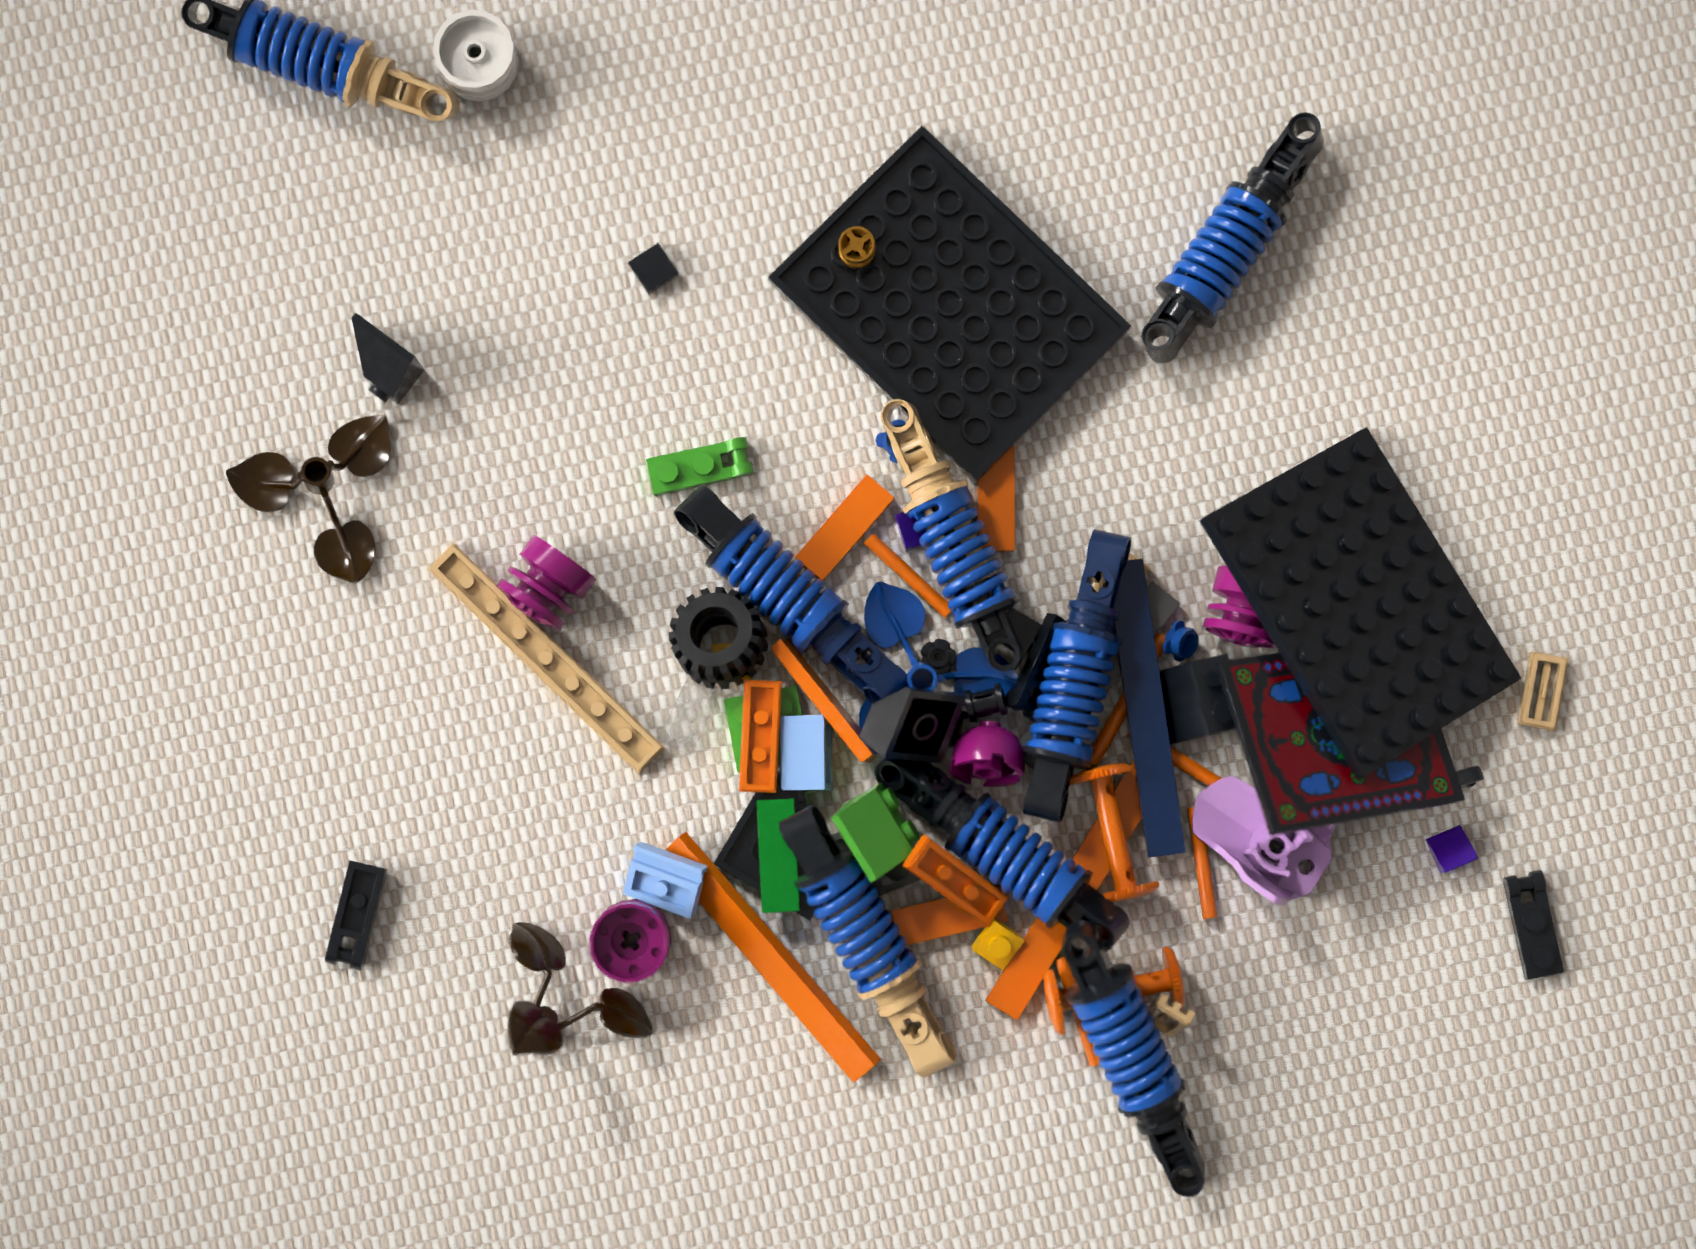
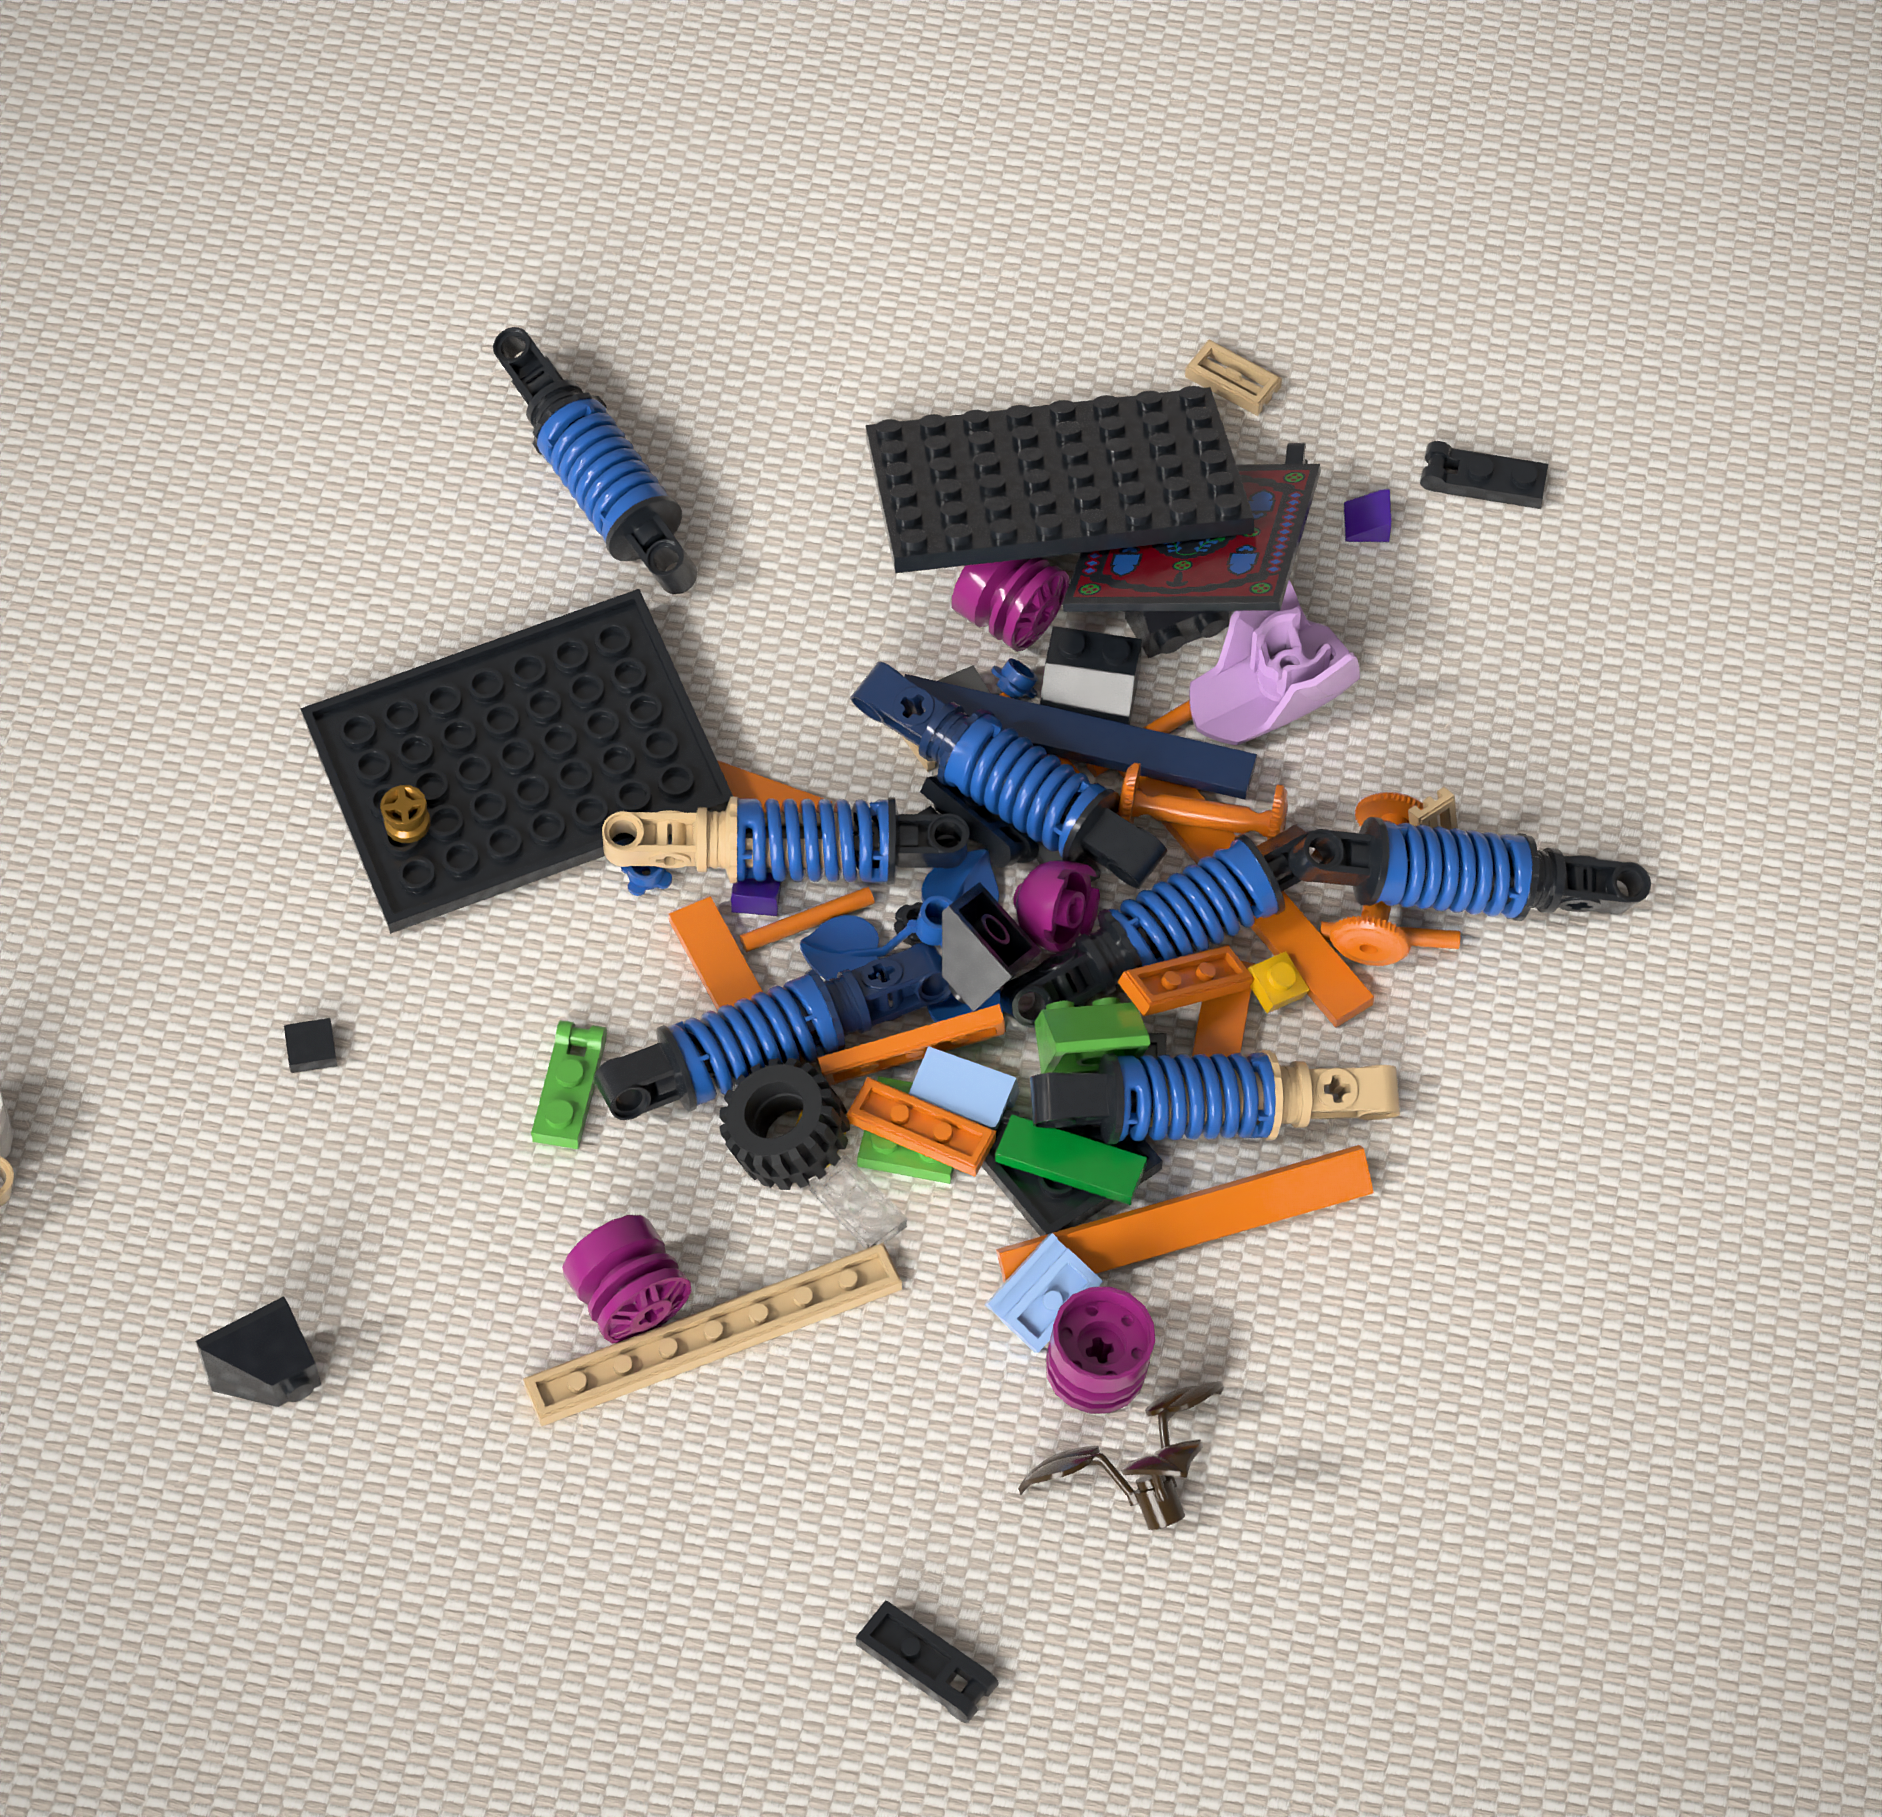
camera: 65 degrees left, 25 degrees down
(267, 476) = (353, 1444): dark brown plant -> none
(985, 702) = (996, 877): black bush -> none
(1203, 873) = (1289, 758): orange bar -> none

